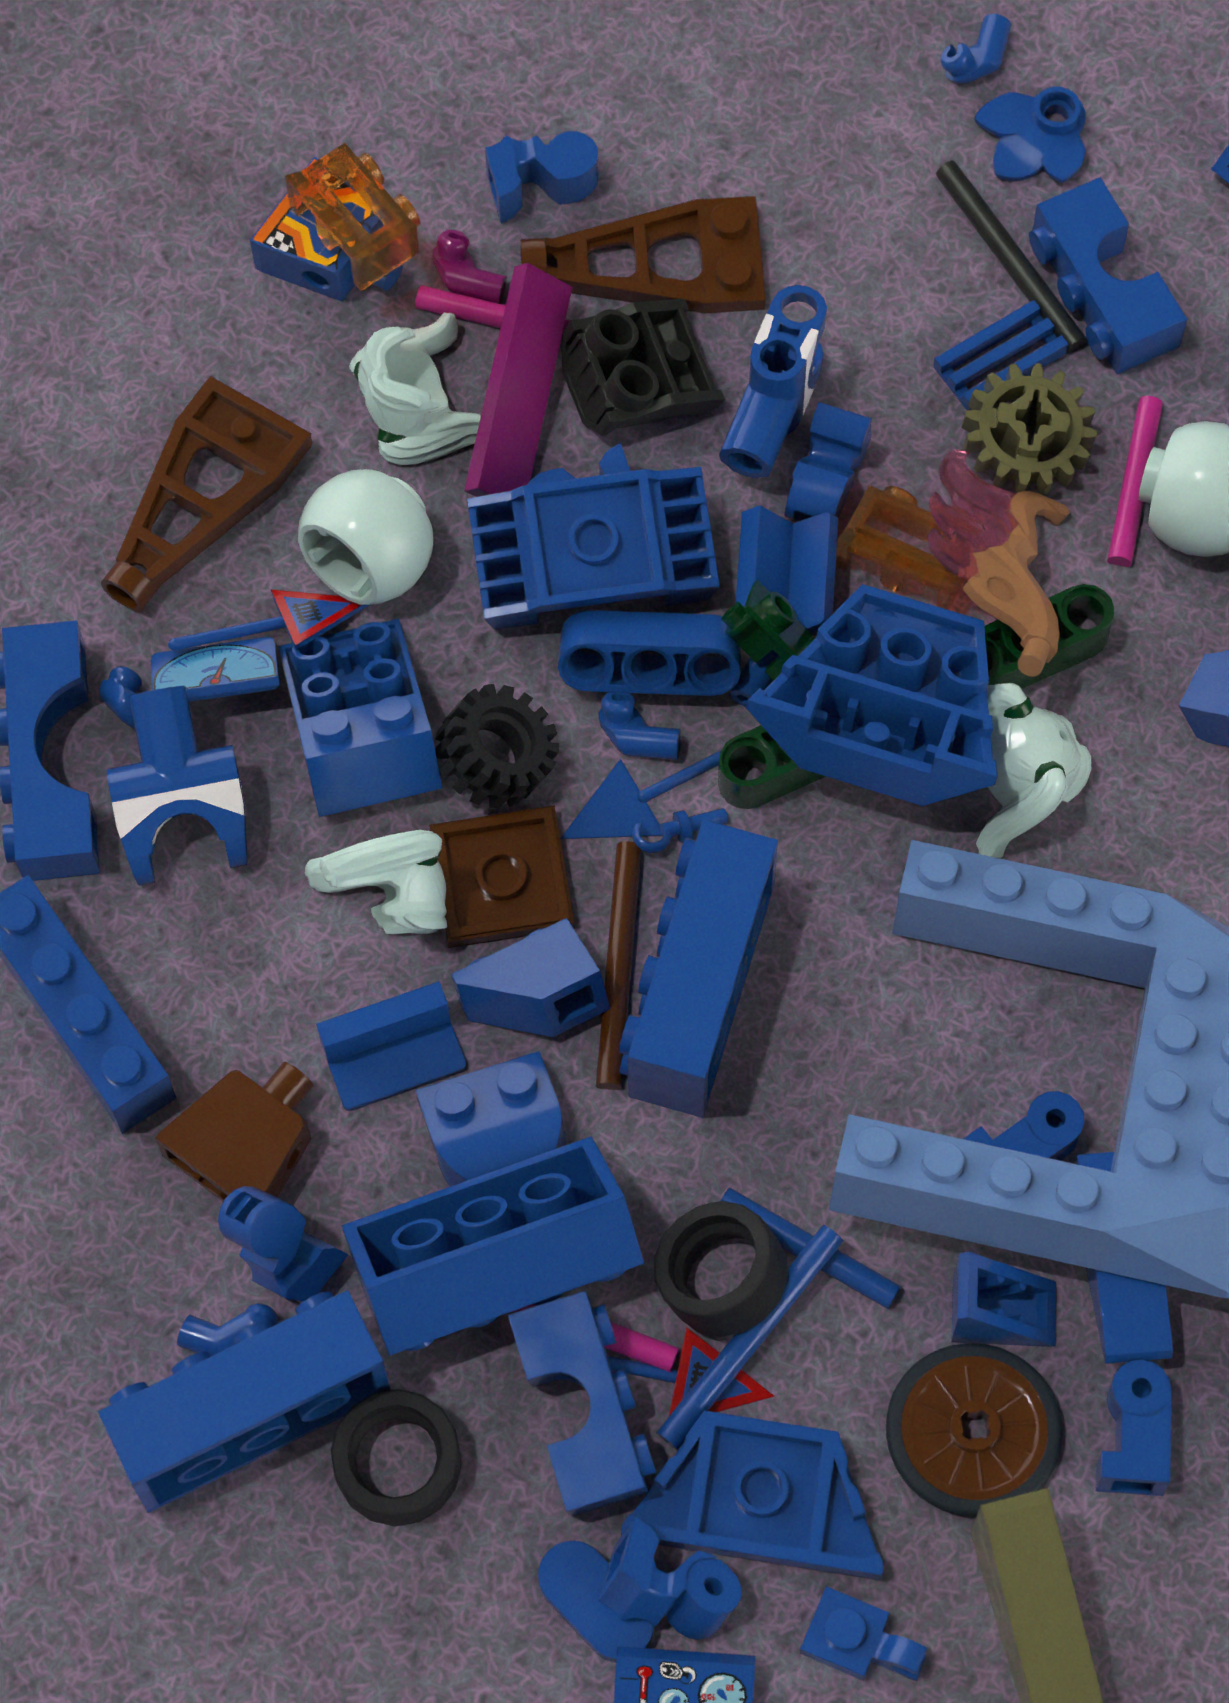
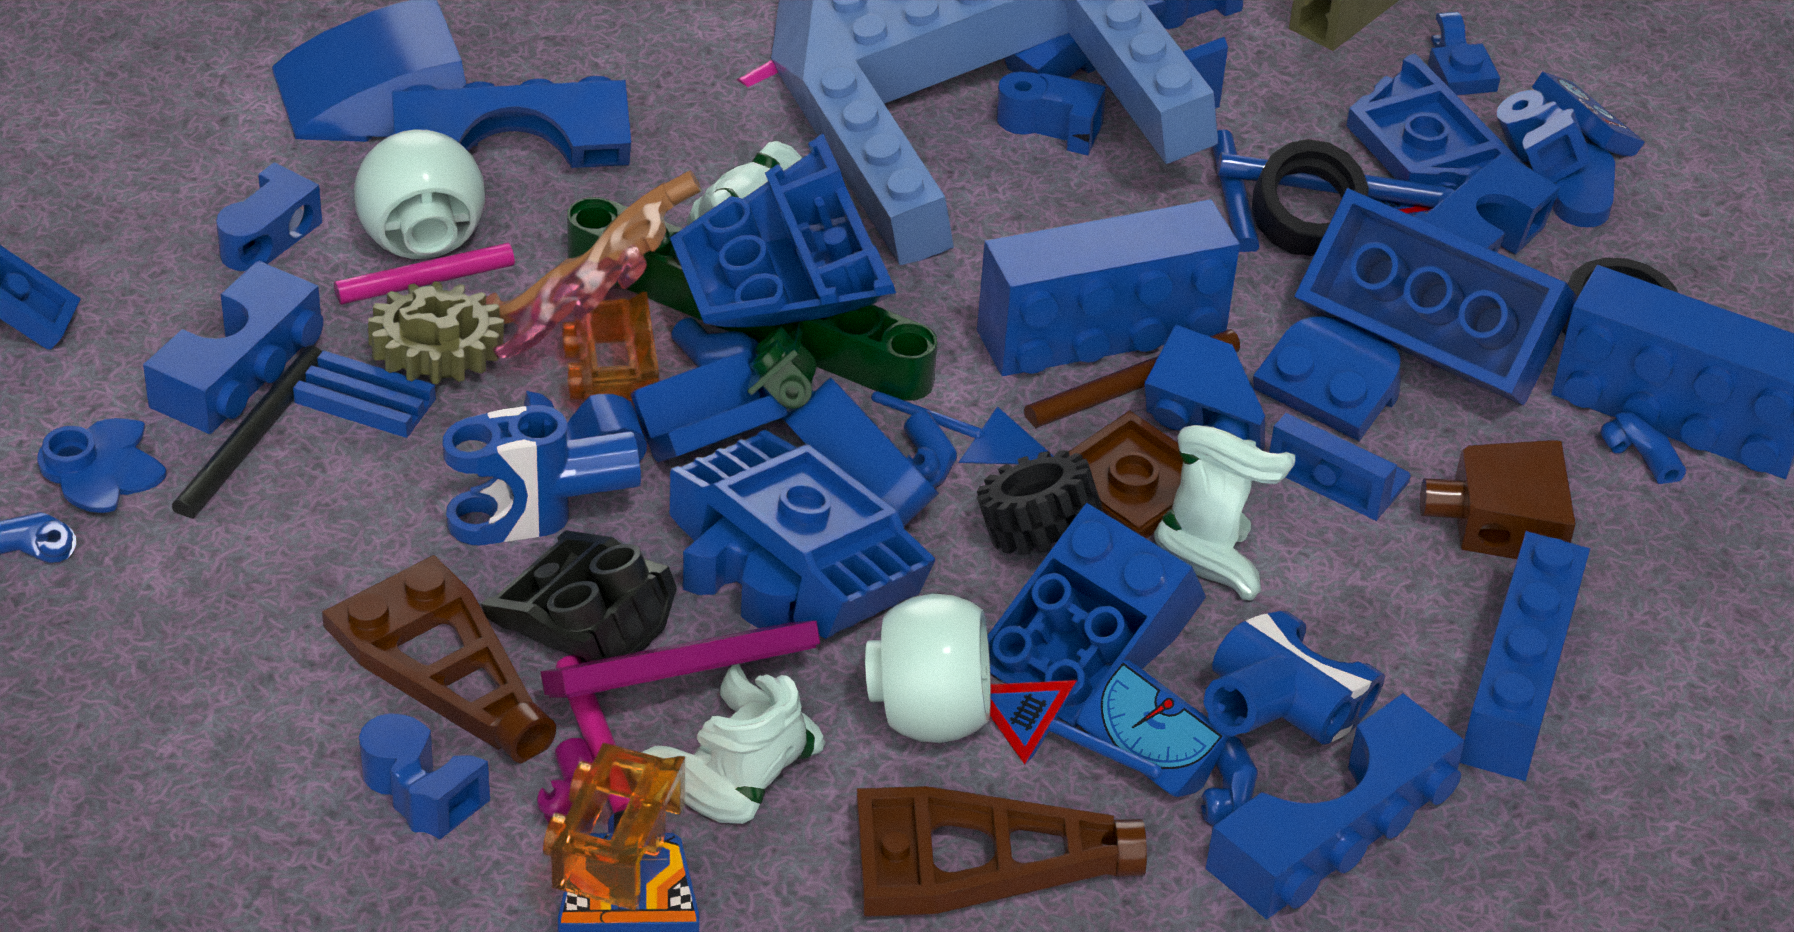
camera: 130 degrees left, 25 degrees down
(275, 1244) = (1563, 413): blue leg -> none
(680, 826) = (986, 391): blue hand -> none
(967, 1384) = (1276, 67): reddish brown wheel -> none

